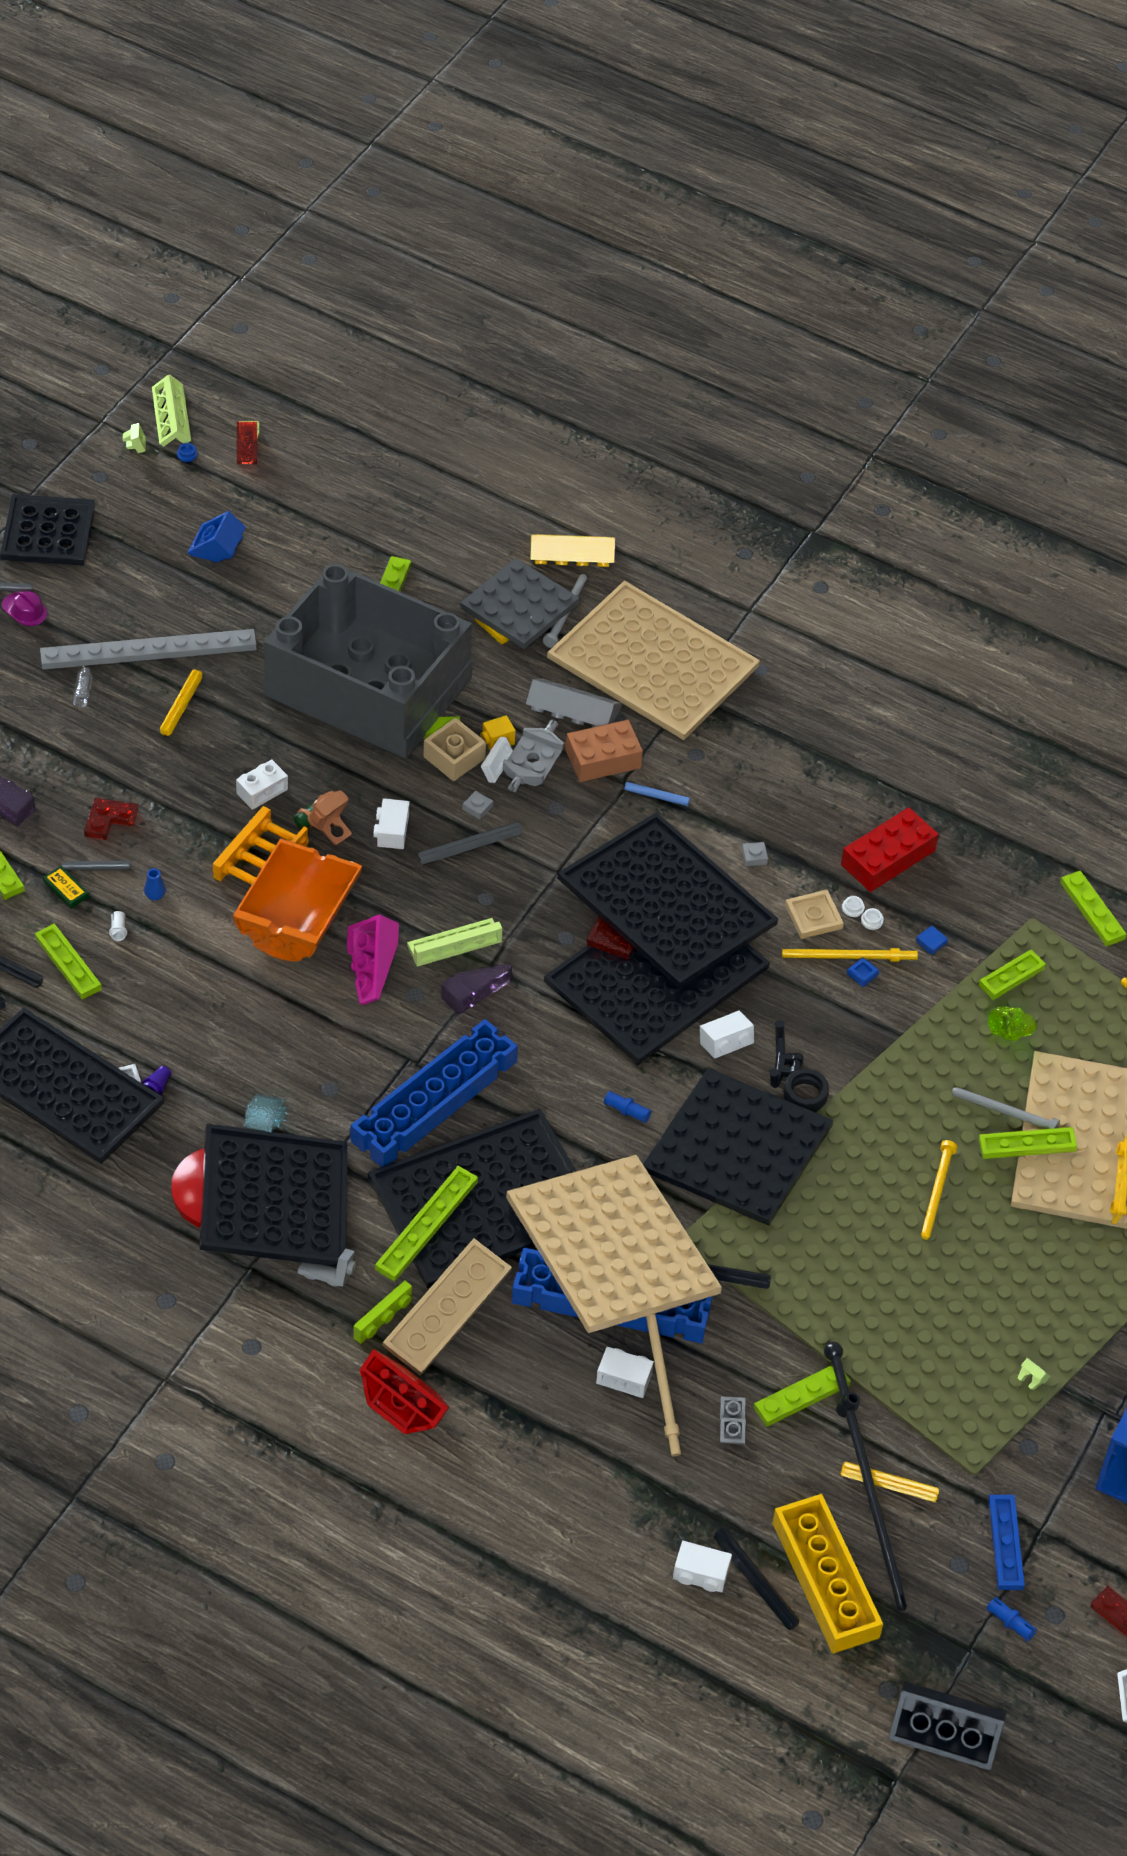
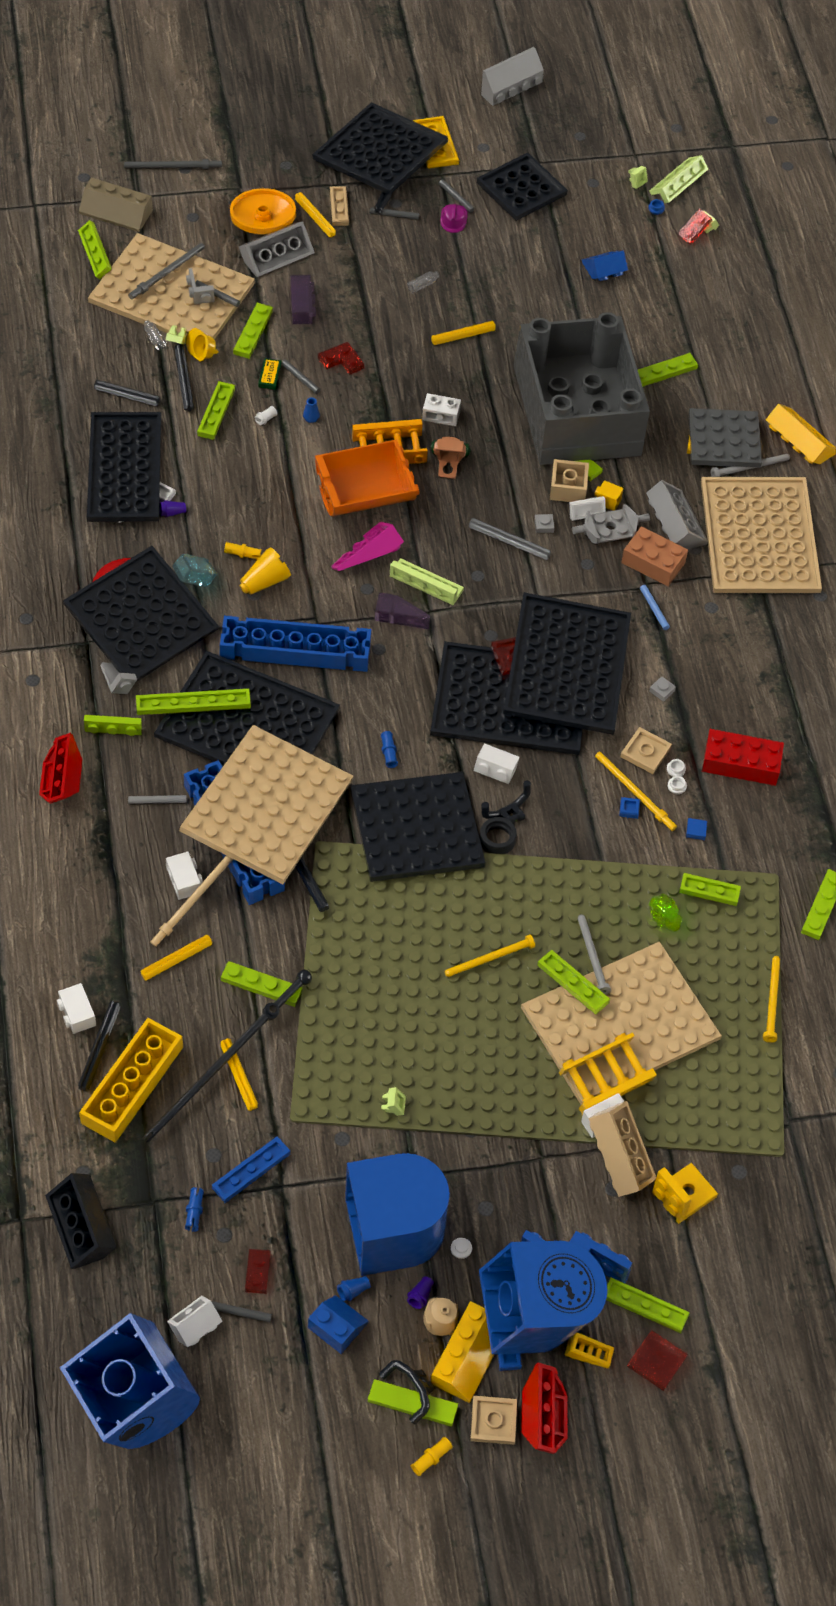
camera: 50 degrees right, 5 degrees up
(148, 649) = (477, 285): light grey plate -> none
(271, 1060) = (242, 550): none -> yellow pin
(322, 1057) = (265, 572): none -> yellow cone
(392, 824) = (479, 490): white brick -> none
(446, 1306) = (145, 753): tan plate -> none
(505, 1336) = (157, 799): none -> light grey bar
(710, 1444) = (176, 957): none -> yellow axle
(732, 1420) = (205, 959): light grey slope -> none

